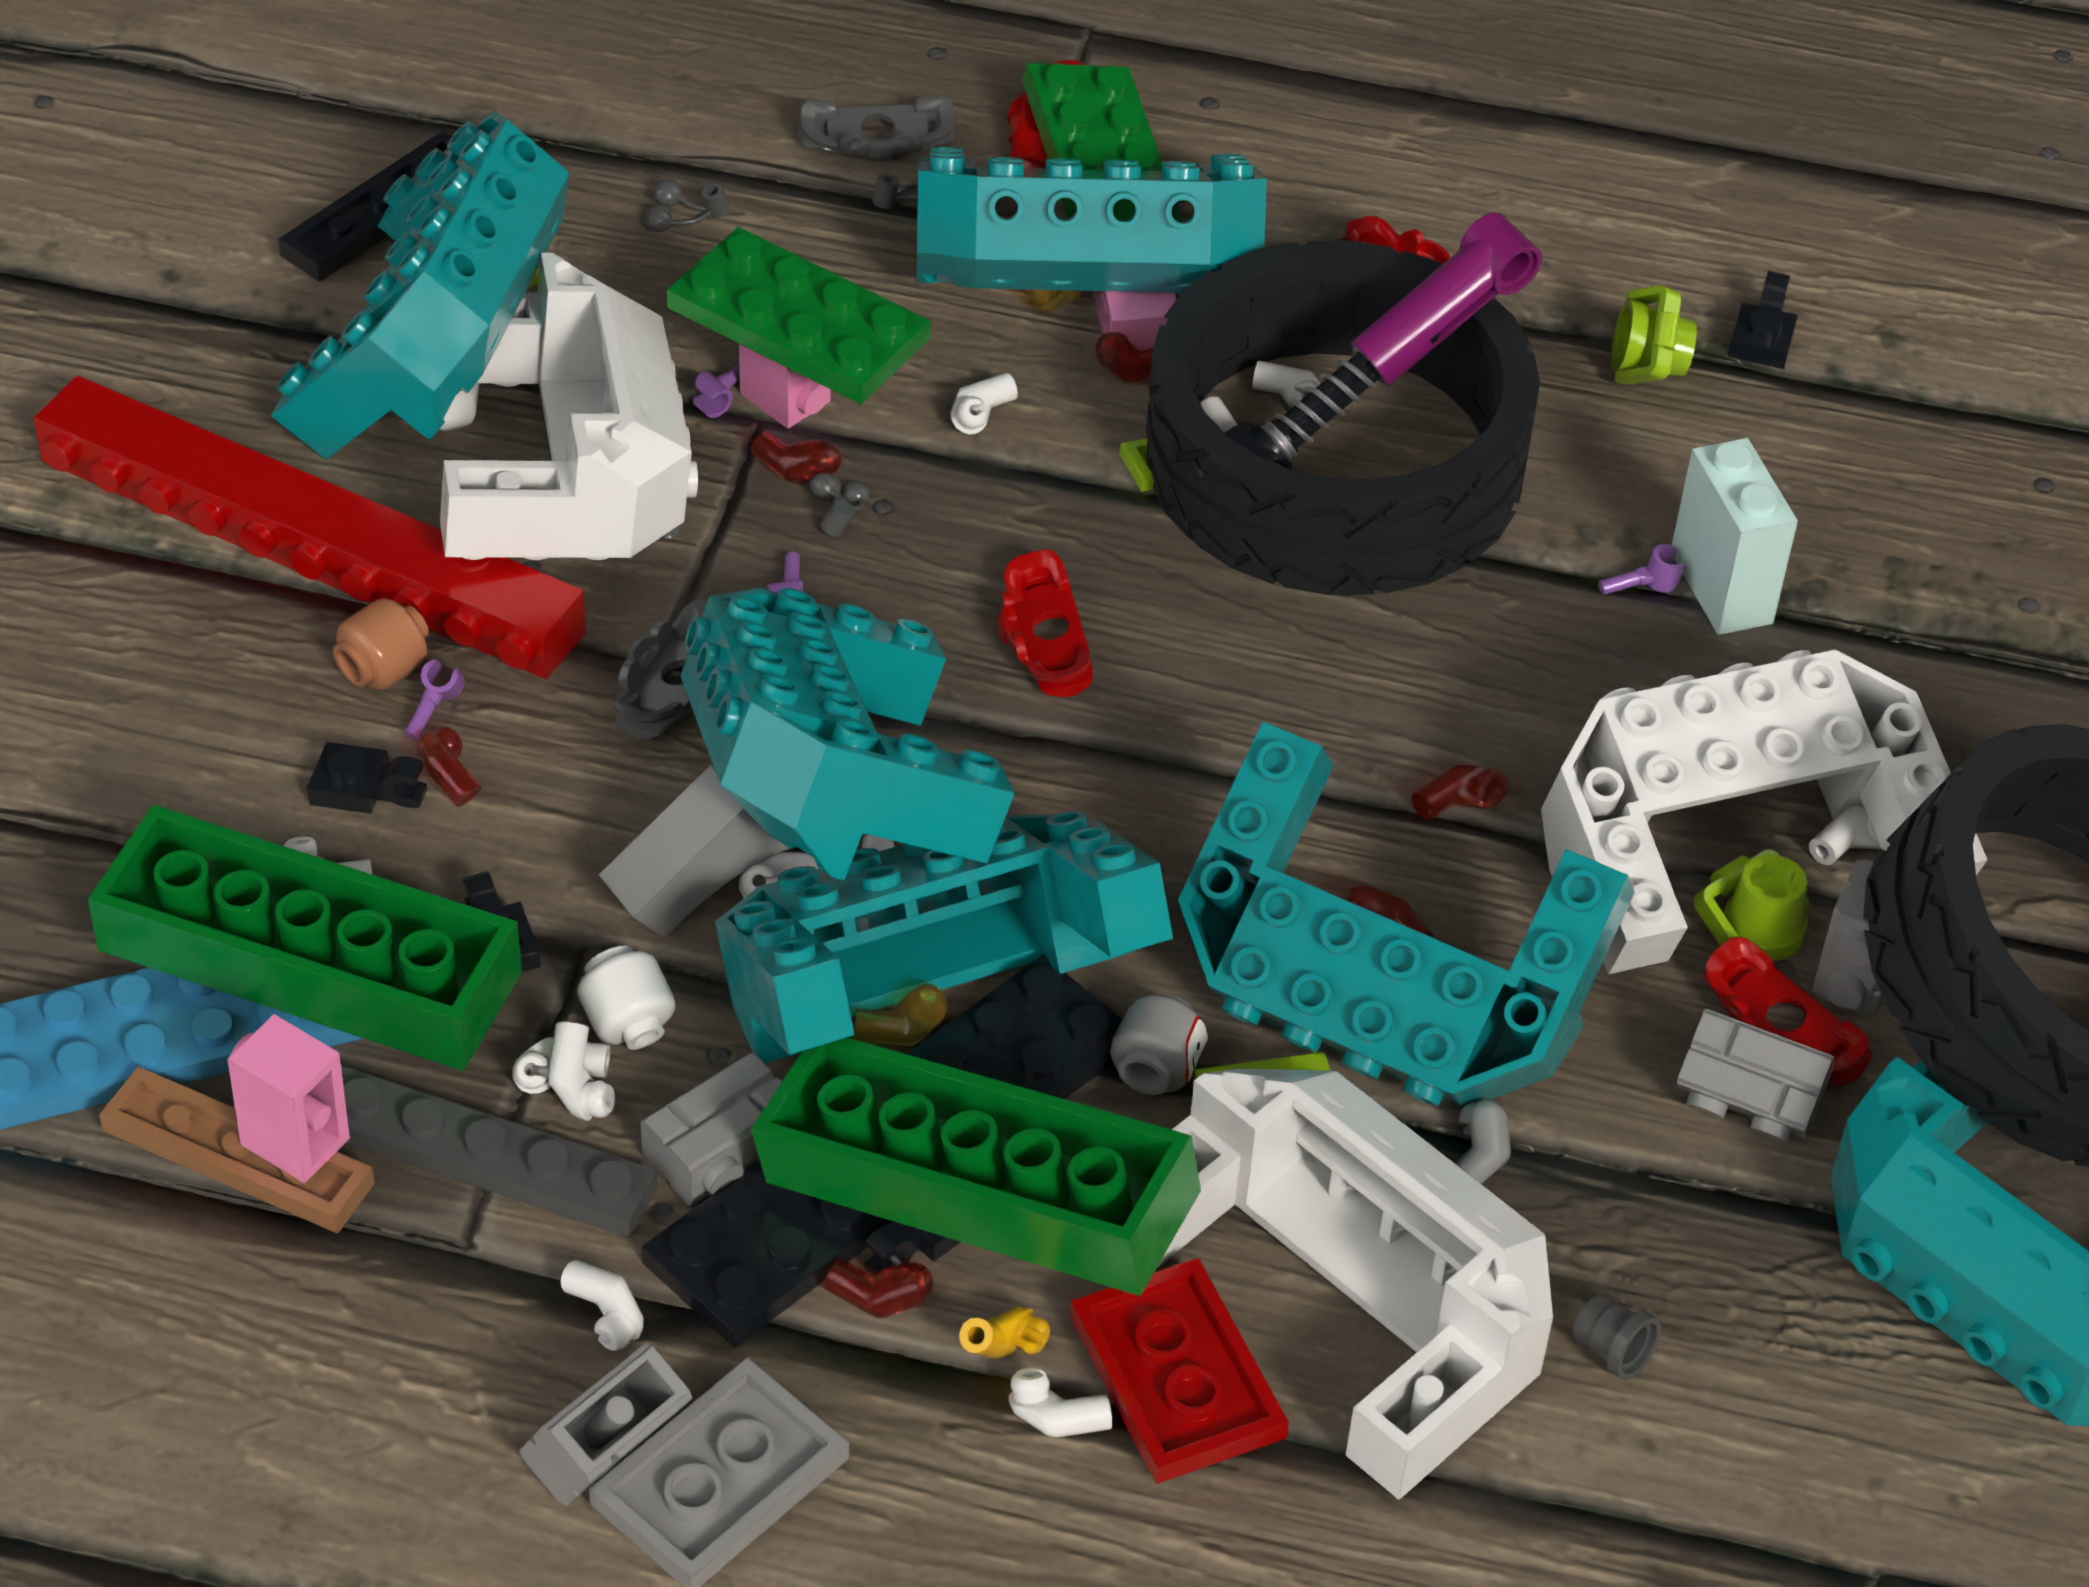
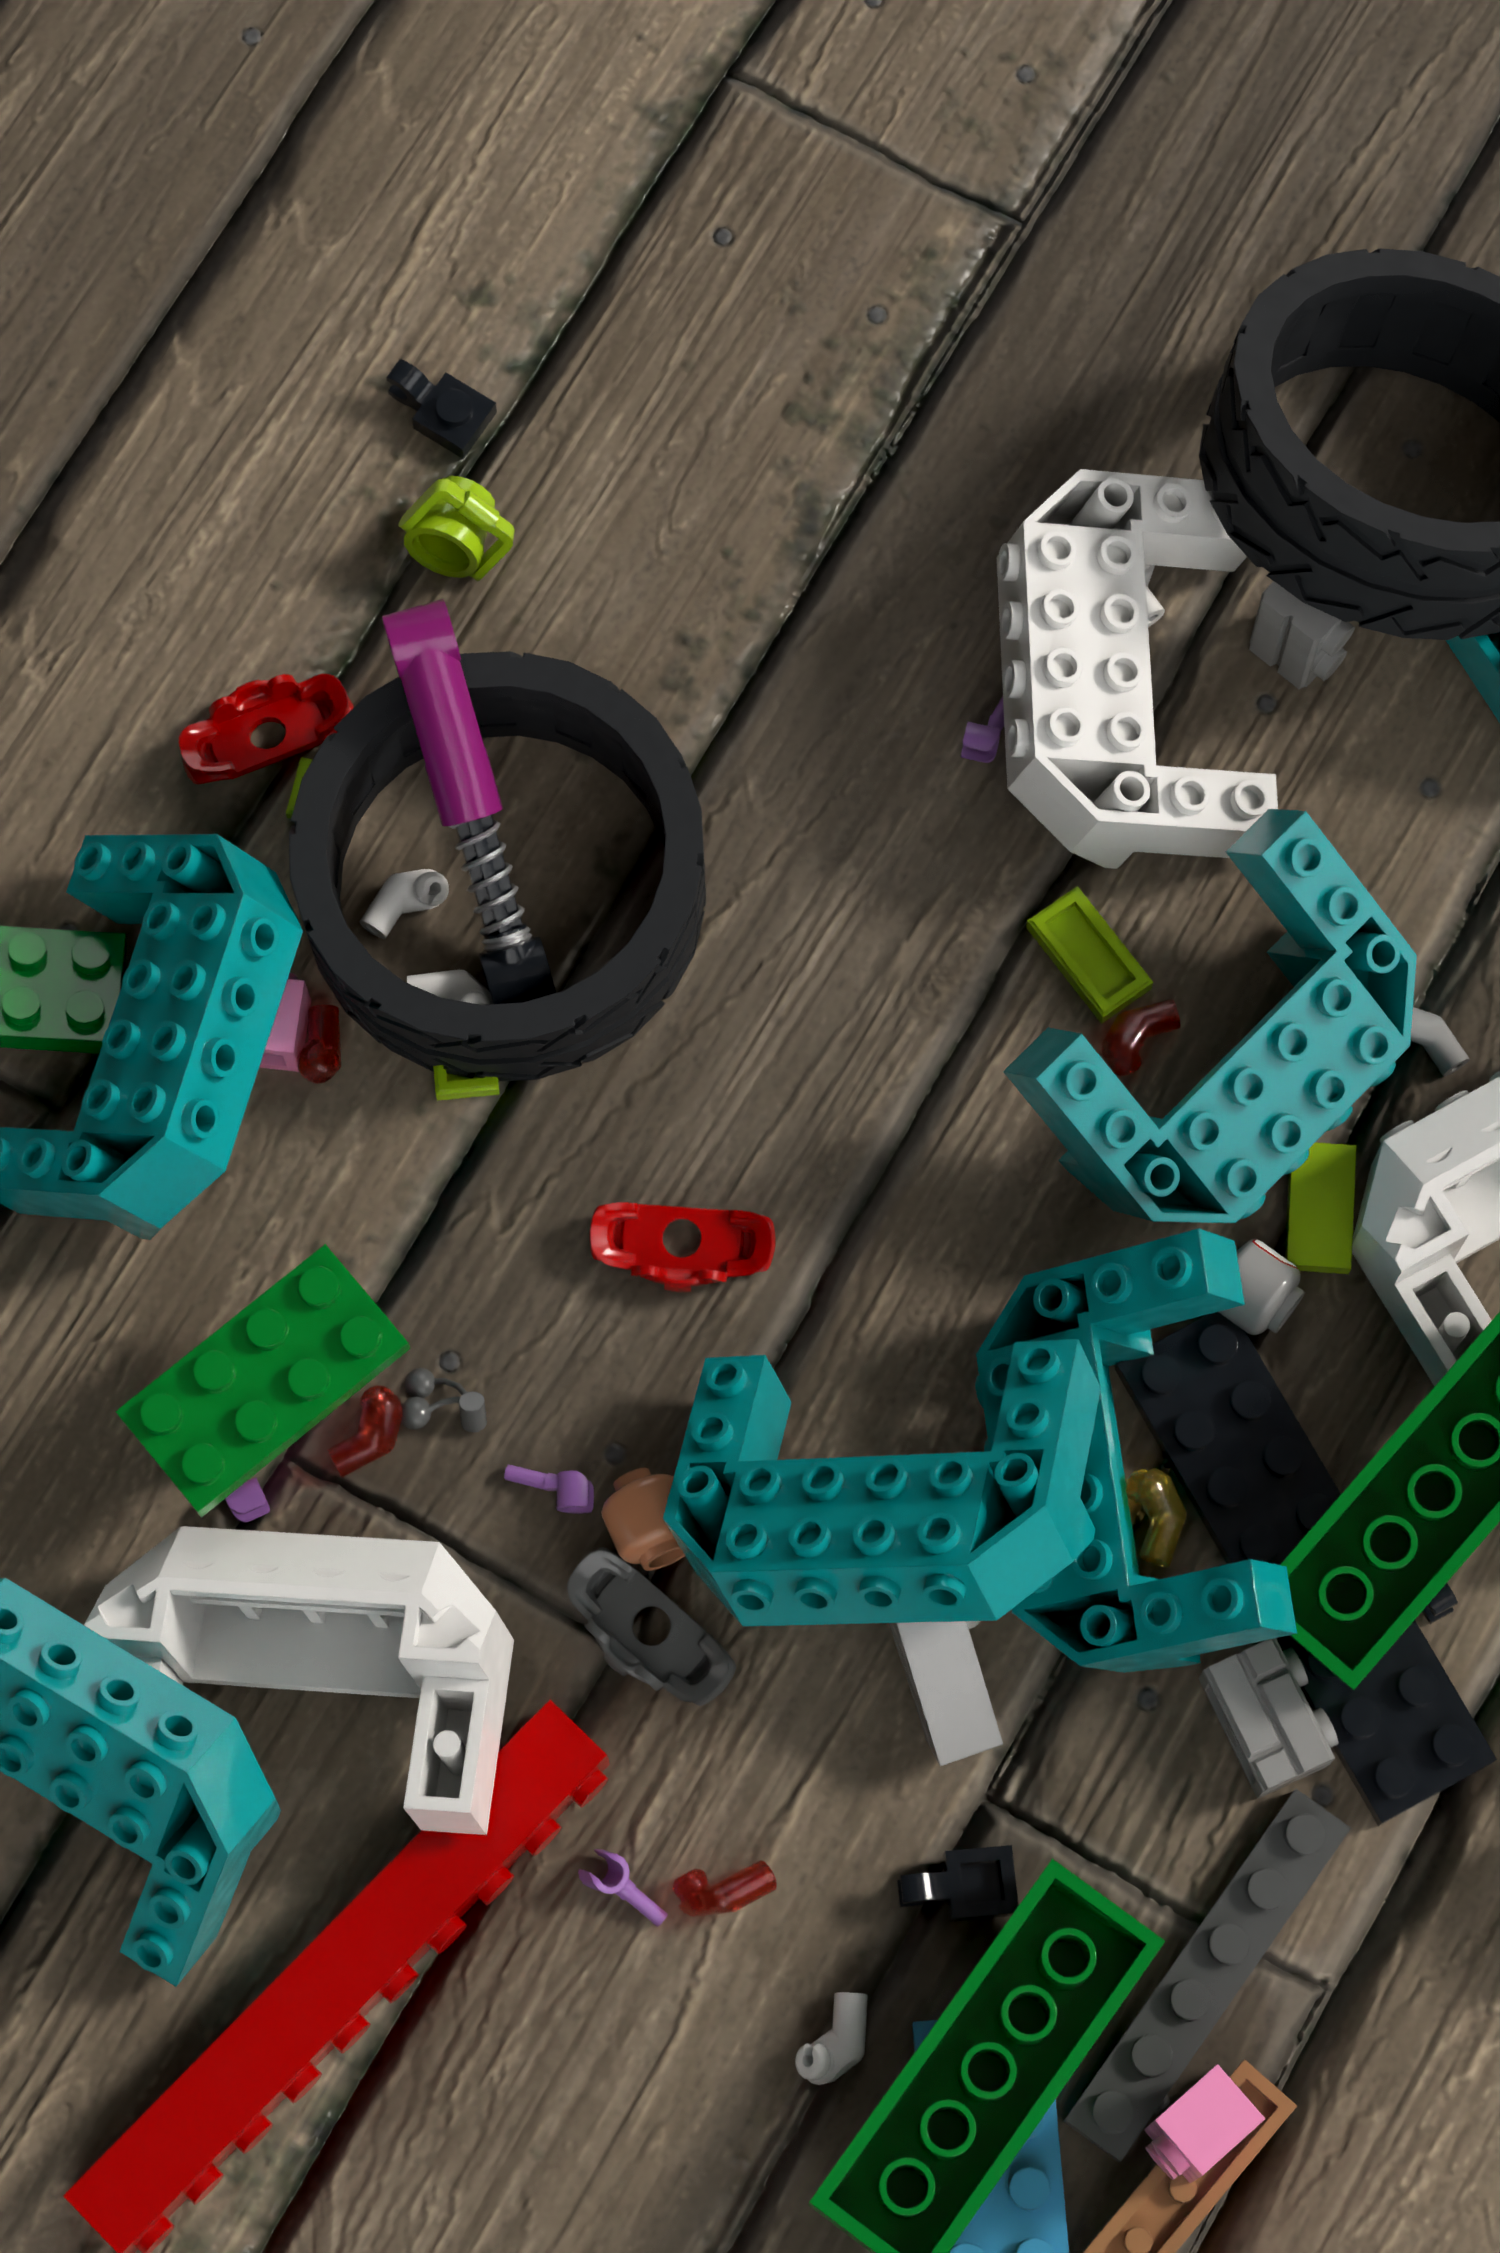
camera: 70 degrees left, 25 degrees up
(359, 776) = (713, 1987): black plate -> none
(381, 644) = (546, 1926): nougat head -> none
(532, 1066) = (1133, 1858): white arm -> none
(571, 1080) = (1170, 1846): white arm -> none
(610, 1291) = (1429, 1864): white arm -> none
(626, 997) = (1086, 1772): white head -> none
(881, 1292) = (1476, 1614): clear red arm -> none
(975, 401) = (334, 1227): white arm -> none
(1453, 869) = (1089, 954): none -> lime tile
(1463, 787) = (993, 912): clear red arm -> none
(1658, 574) = (757, 642): medium lavender hand -> none
(1733, 536) = (781, 551): light aqua brick -> none
(1751, 985) = (1377, 708): red piece -> none
(1754, 1076) = (1419, 776): light grey brick -> none
(1766, 903) = (1215, 699): lime piece -> none

